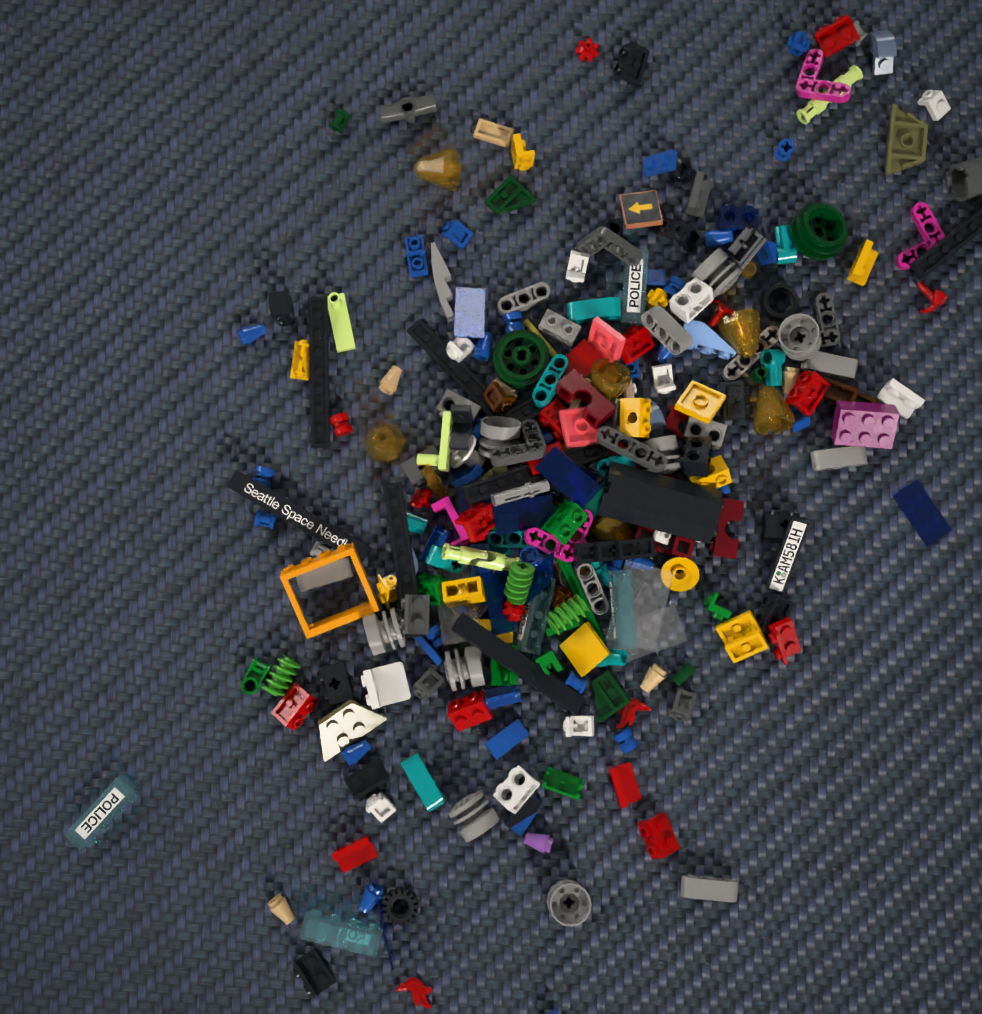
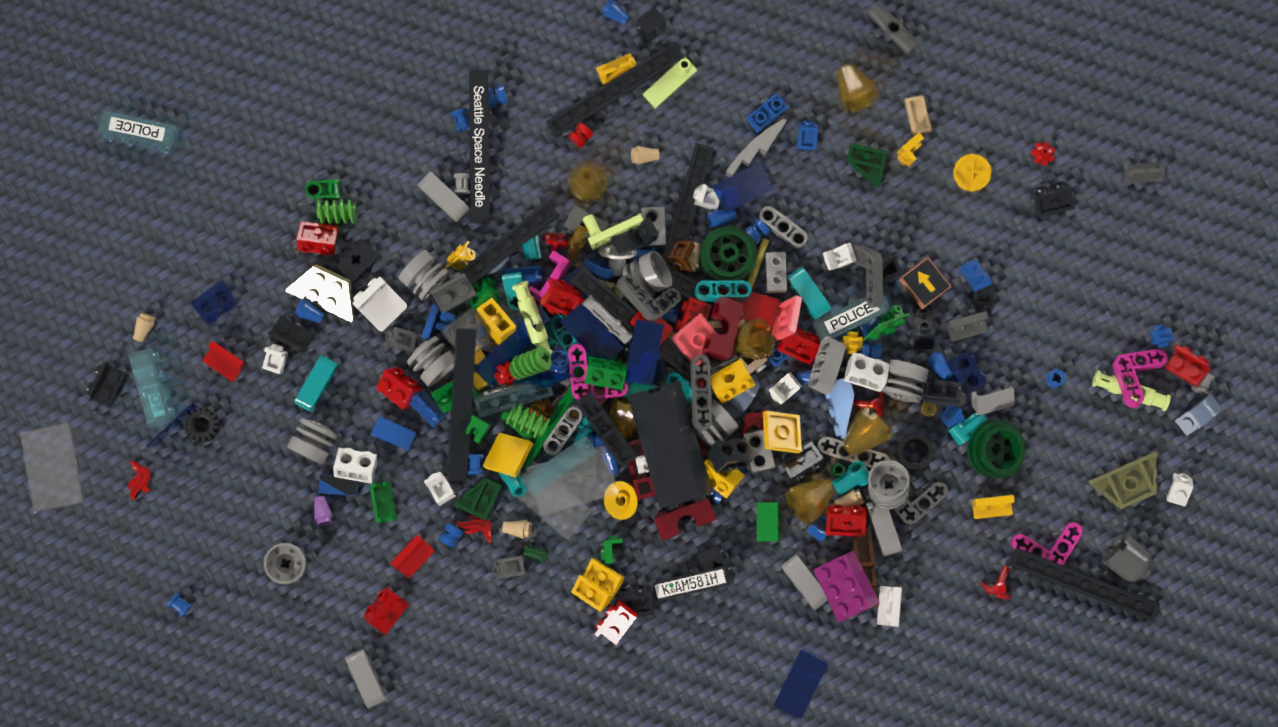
camera: 60 degrees right, 0 degrees up
(292, 831) = (212, 297): none -> clear blue brick
(340, 618) = (416, 234): light orange window -> none
(370, 897) = (195, 395): blue cone -> none
(568, 117) = (972, 172): none -> yellow tile
(657, 259) = (888, 322): none -> green hinge
(770, 459) = (769, 522): none -> green hinge
(775, 210) = (993, 401): none -> light grey hinge

